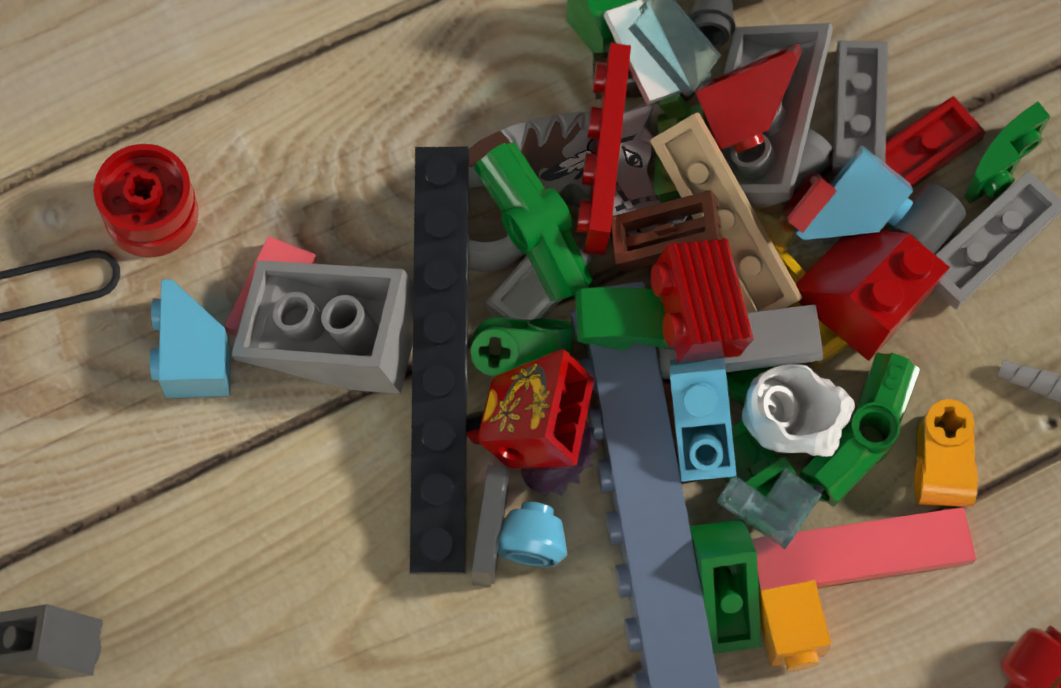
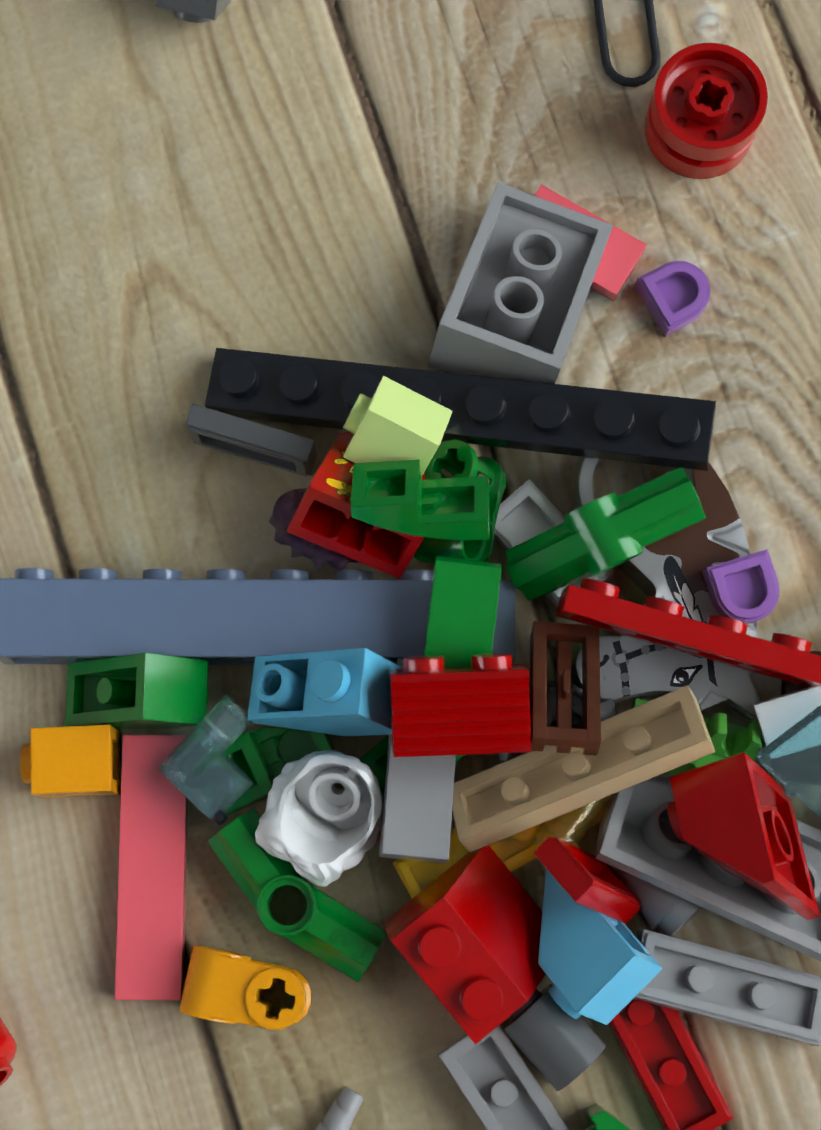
camera: 100 degrees right, 10 degrees up
(192, 347) = (522, 141): medium azure slope -> none
(307, 212) = (674, 294): none -> medium lavender tile
(478, 388) = (395, 426): none -> yellowish green brick
(533, 536) = (230, 484): medium azure cone -> none
(541, 353) = (400, 501): none -> green slope
(556, 119) = (743, 587): none -> medium lavender tile

